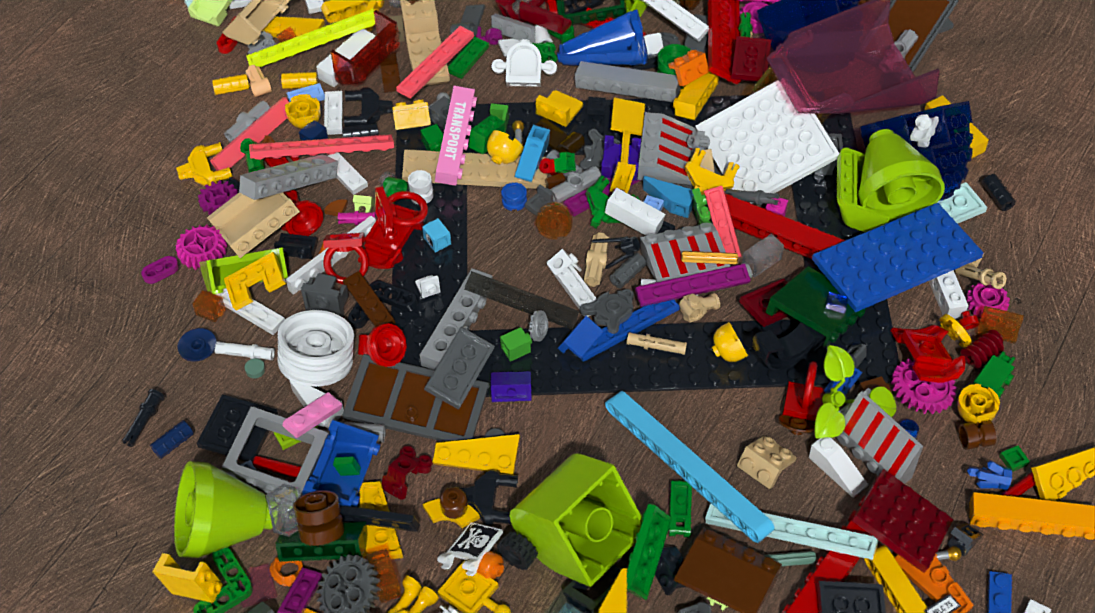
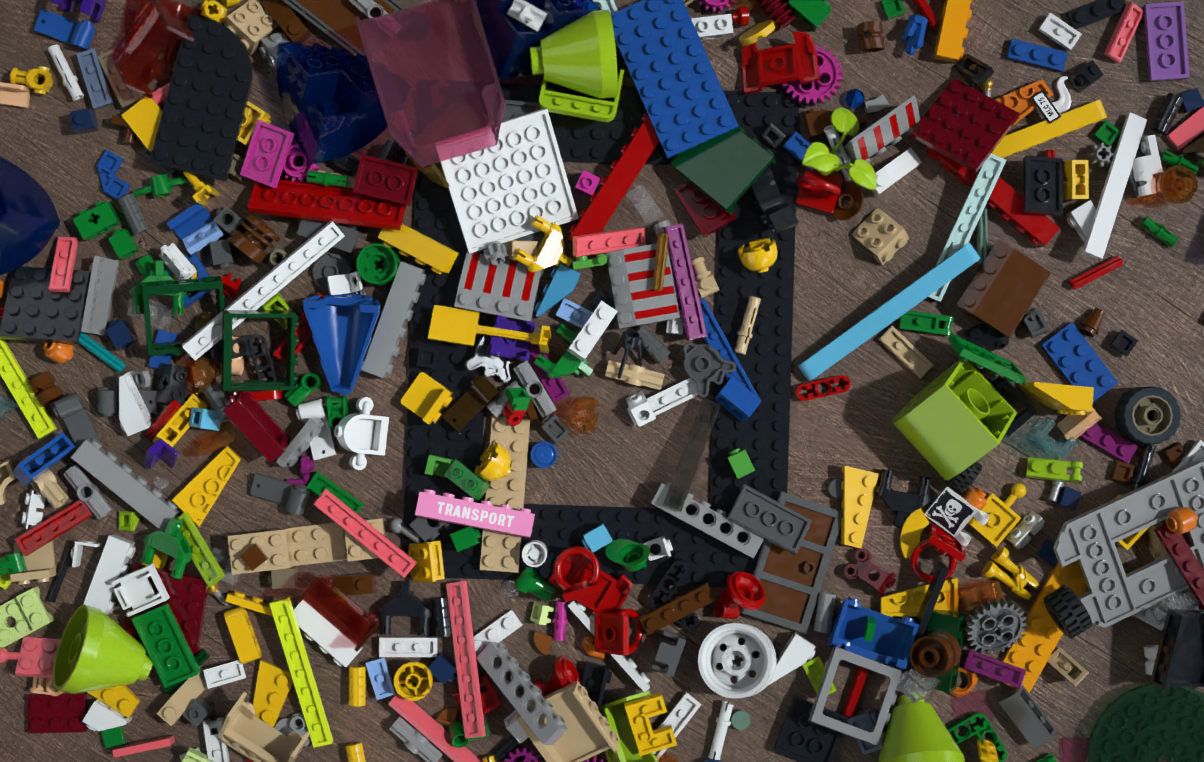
camera: 90 degrees left, 35 degrees up
(258, 83) = (358, 731): light nougat piece -> none
(286, 35) = (289, 701): clear orange plate -> none
(312, 415) = (818, 662): bright pink plate -> none
(420, 258) = (628, 554): none -> green piece
(439, 534) = (945, 545): none -> red tile
(453, 503) = (911, 525): reddish brown head -> none
(511, 386) = (782, 470): dark purple panel -> none
(518, 127) = (451, 445): piece -> none
(532, 153) = (501, 432): dark azure slope -> none
(538, 325) = (724, 440): light grey gear -> none
(543, 17) = (294, 405): dark red panel -> none
(598, 427) = (818, 395): none -> red beam
(651, 488) = (905, 352): none -> tan tile
(690, 67) = (394, 250): orange bracket -> none
(758, 197) = (579, 202): dark grey pin -> none
(836, 302) = (730, 144): clear blue tile -> none
(978, 403) = (844, 29): yellow cylinder -> none

